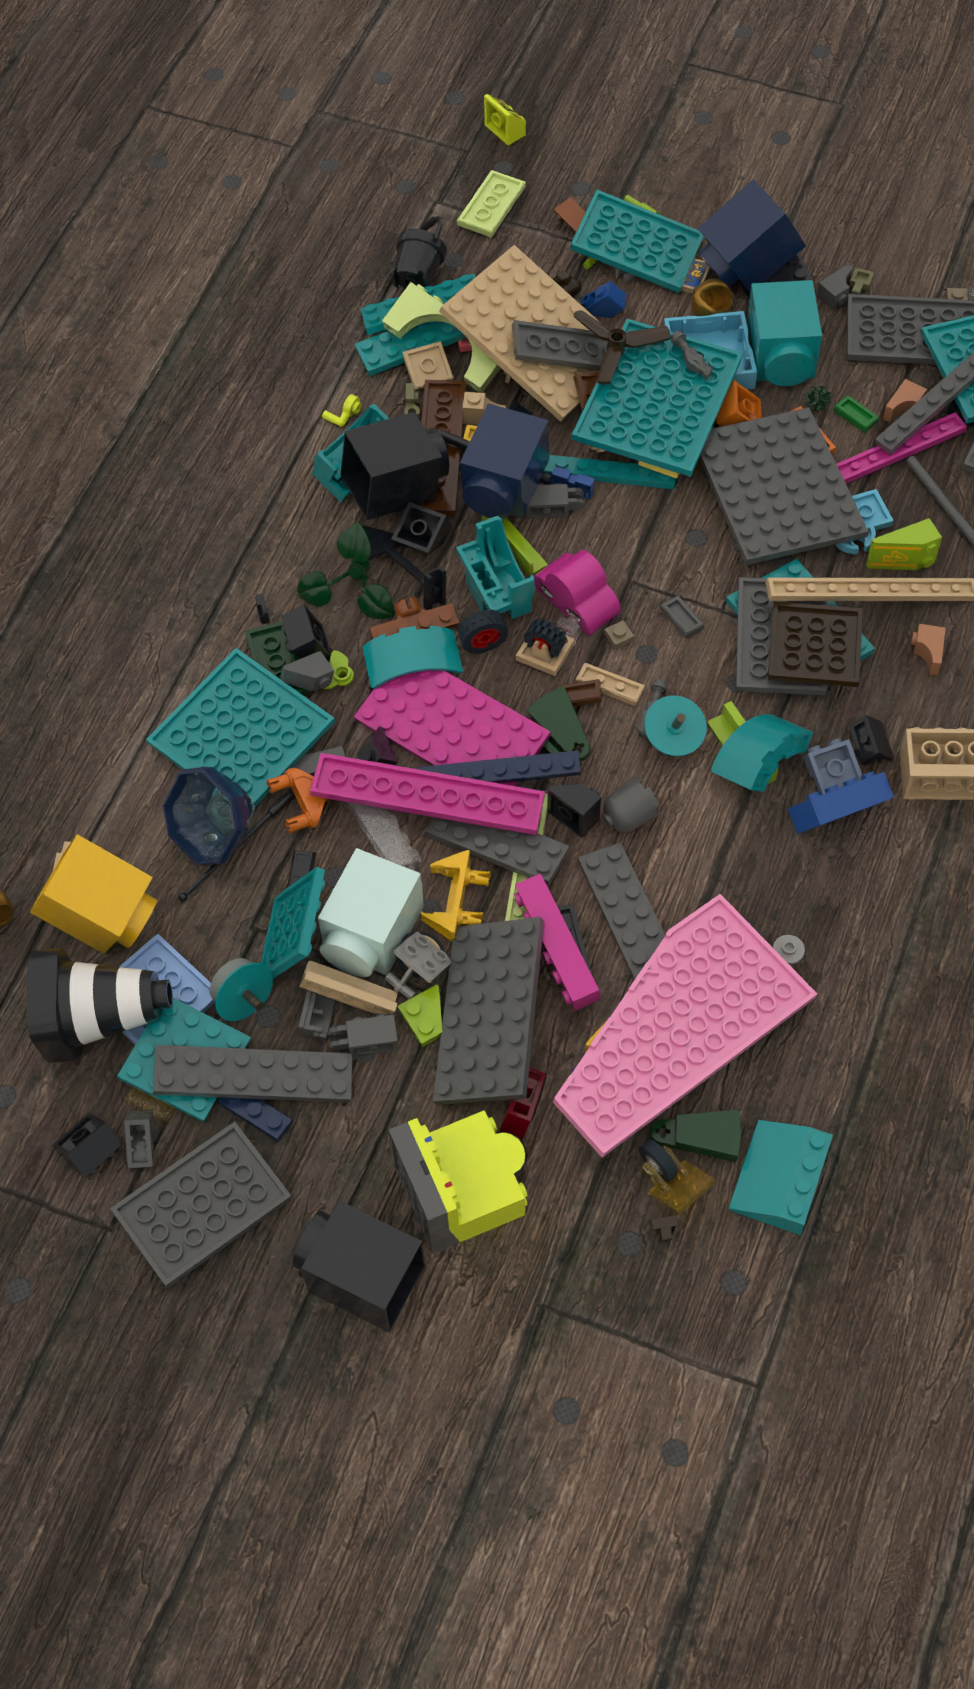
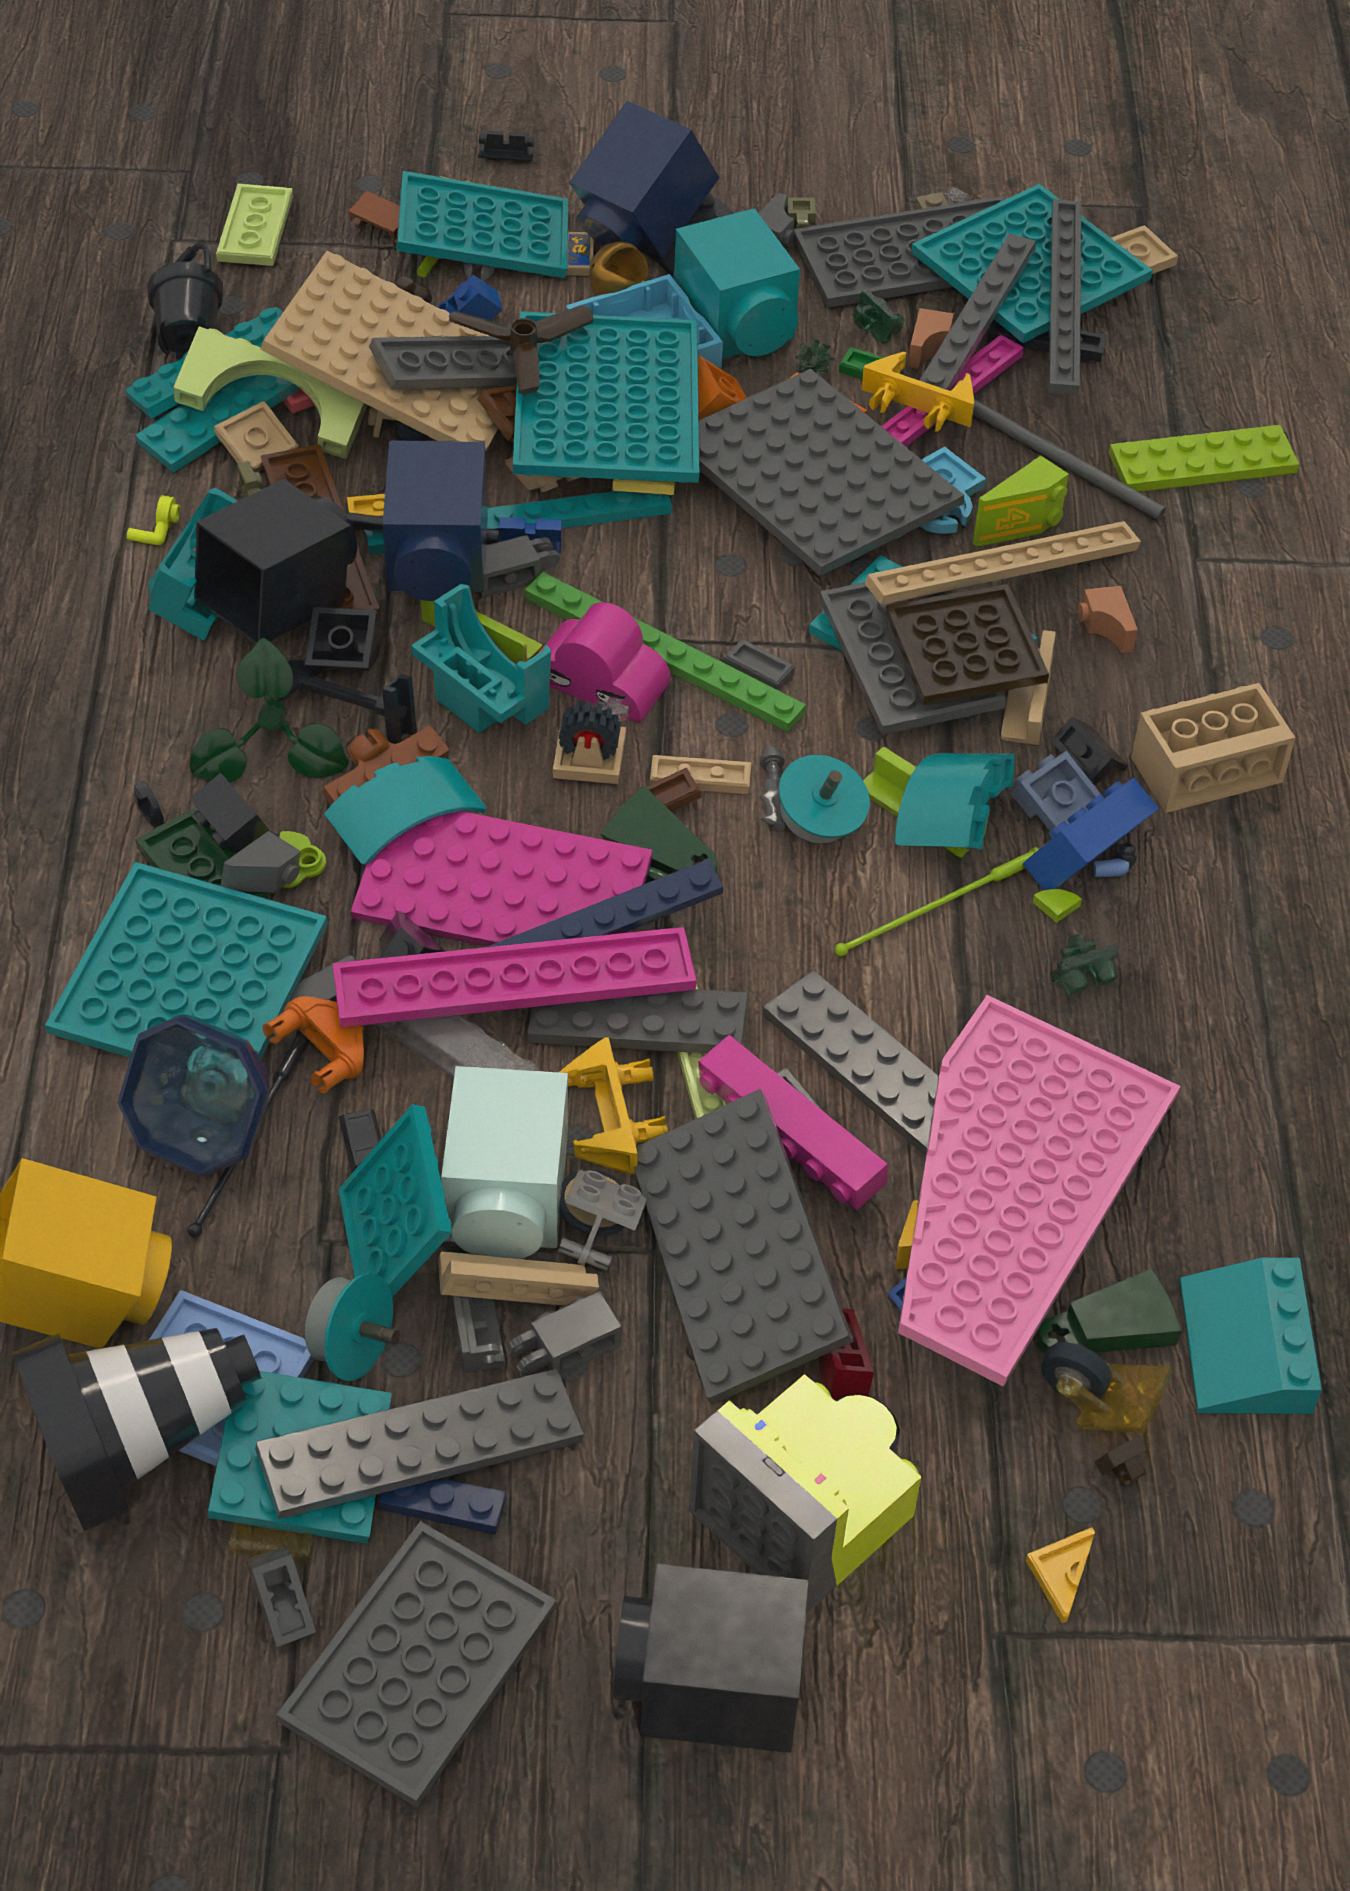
camera: 25 degrees left, 10 degrees down
(88, 1145) = (198, 1631): black slope -> none
(423, 1015) = (639, 1285): lime wing -> none
(474, 407) = (356, 475): tan arch -> none
(482, 631) = (494, 747): black wheel -> none
(503, 120) = (227, 121): neon yellow slope -> none
(574, 806) = (731, 938): black slope -> none
(596, 1278) = (1060, 1569): none -> yellow tile
(619, 634) = (683, 709): dark tan plate -> none
(628, 593) = (681, 658): none -> bright green plate
(630, 807) = (811, 915): dark grey cylinder -> none
(687, 183) = (518, 148): none -> black hinge
(692, 359) = (636, 341): dark grey piece -> none
(769, 810) = (996, 874): none -> lime piece
(789, 948) = (1112, 1039): light grey piece -> none
(799, 842) = (1057, 903): none -> lime tile
(805, 892) = (1072, 970): none -> clear green hips
(844, 698) = (1027, 704): none -> tan panel
(853, 827) = (1118, 865): none -> medium blue arm
(855, 432) = (888, 385): none -> yellow hose
(874, 376) = (876, 317): none -> clear green hips

